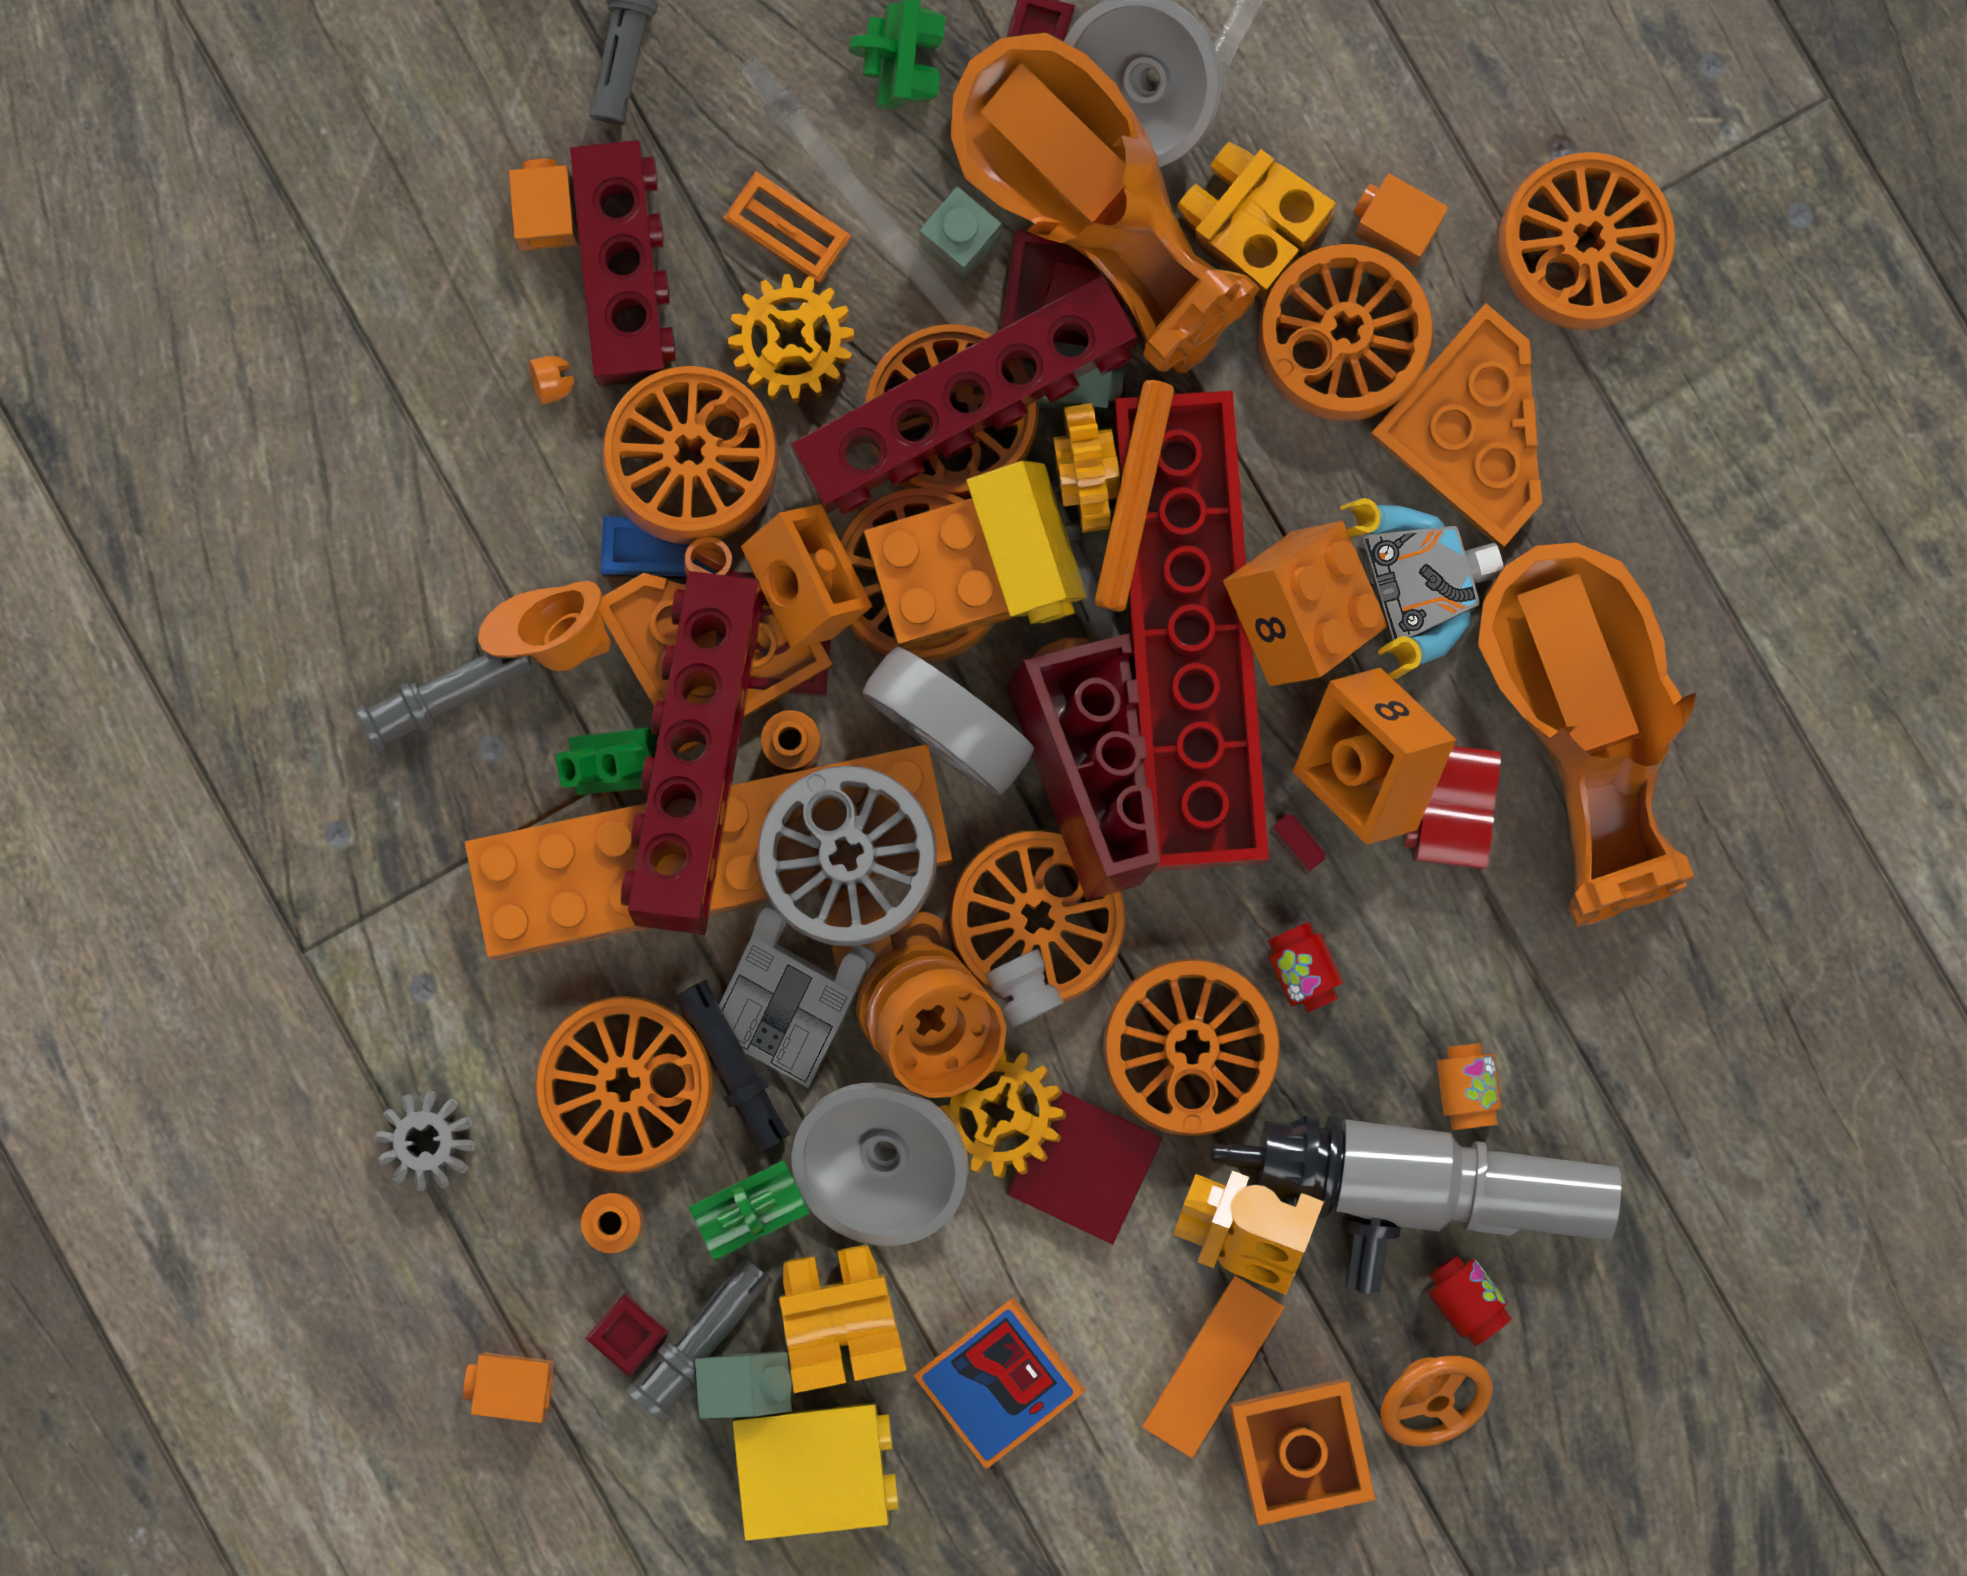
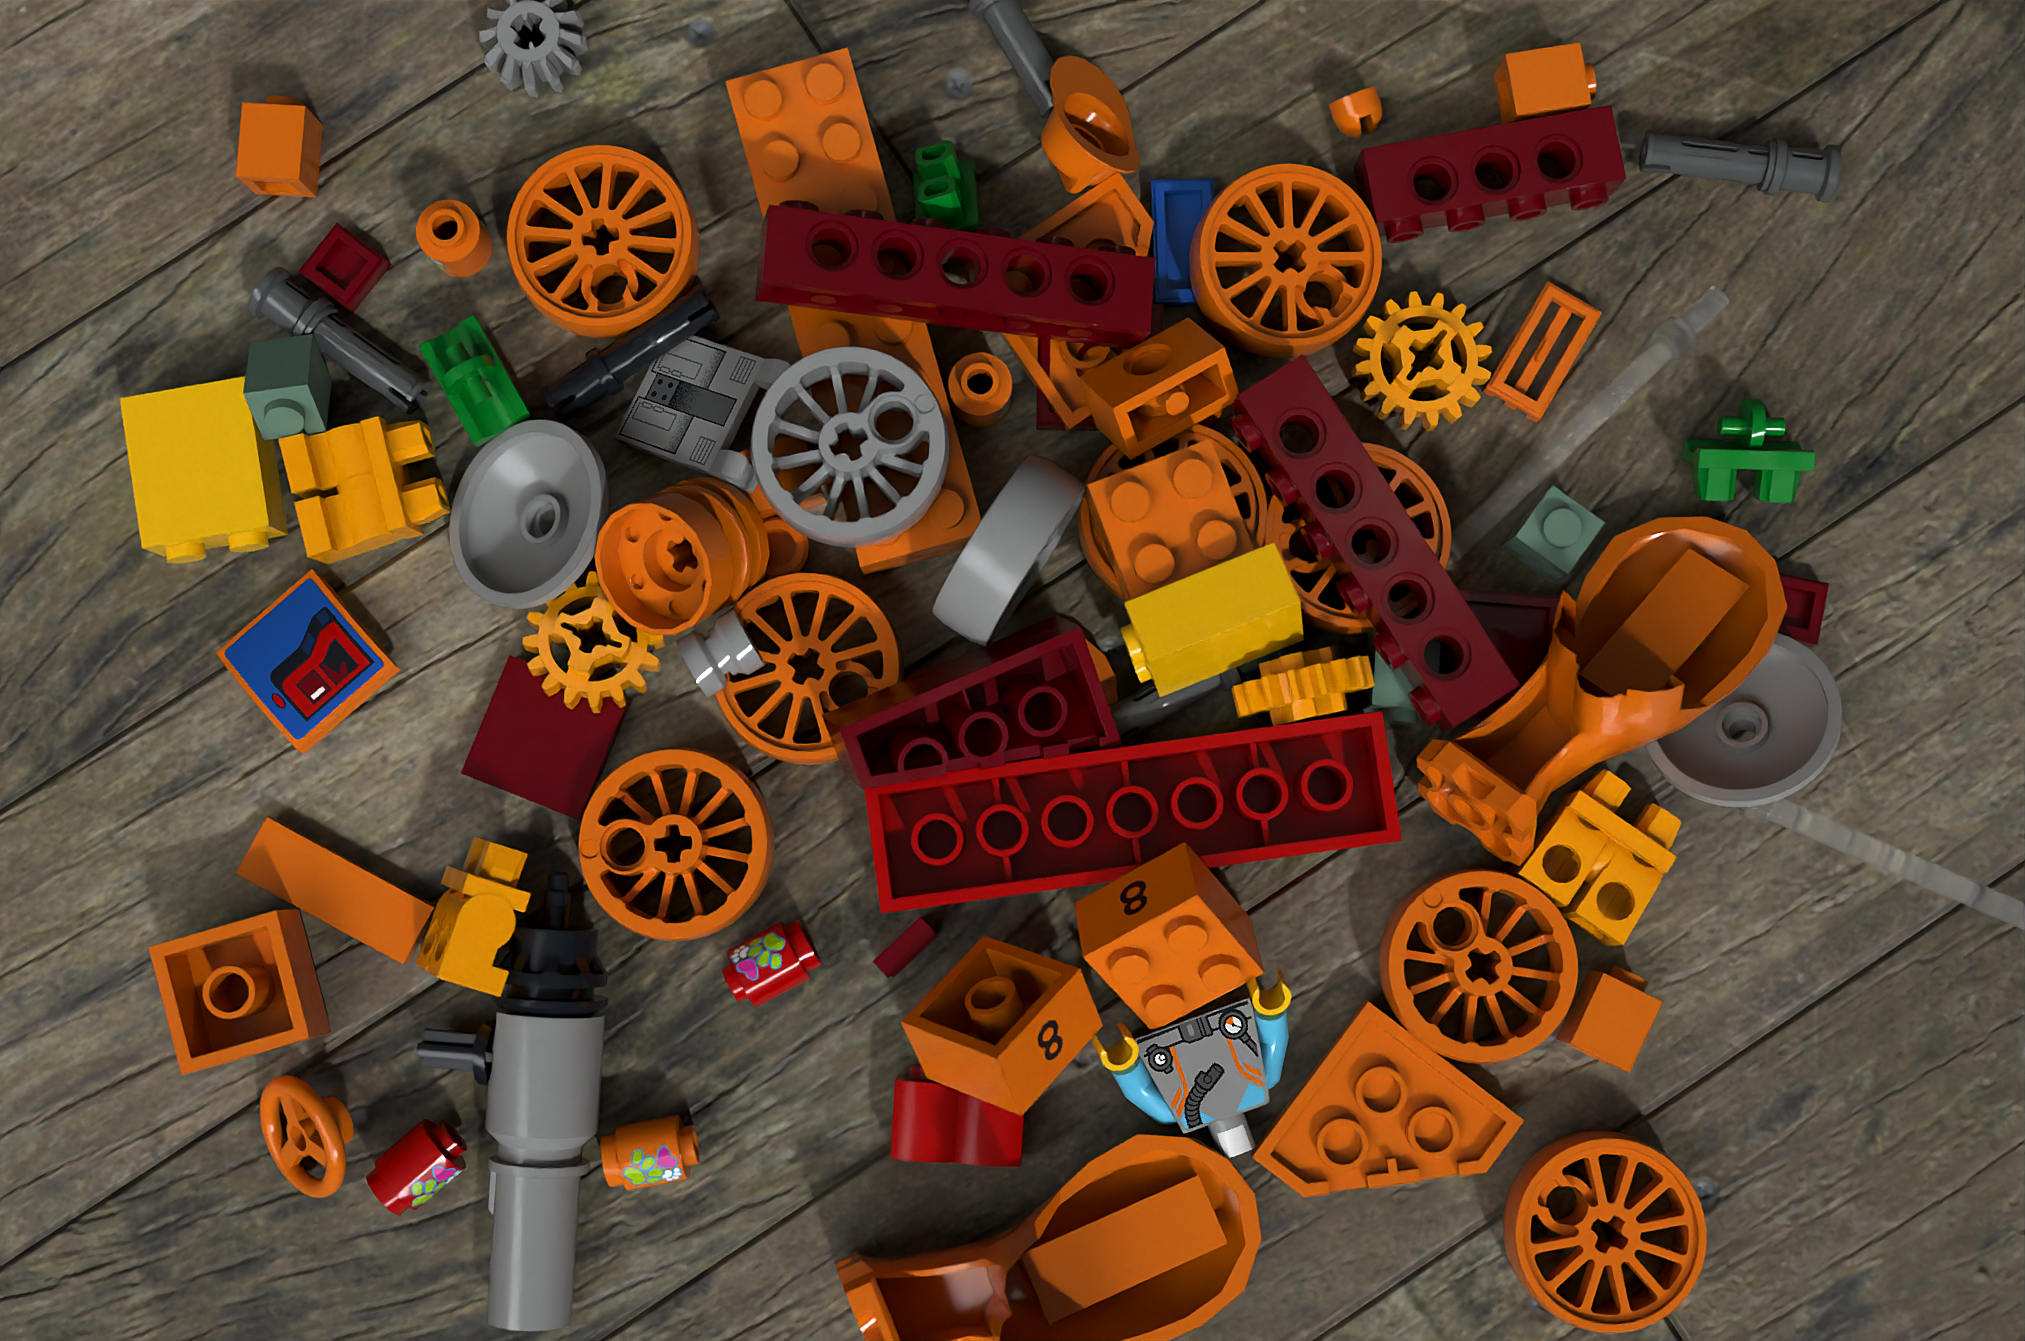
camera: 85 degrees right, 0 degrees up
(709, 552) = (1181, 289): orange hinge -> none
(1134, 495) = (1274, 737): orange axle -> none

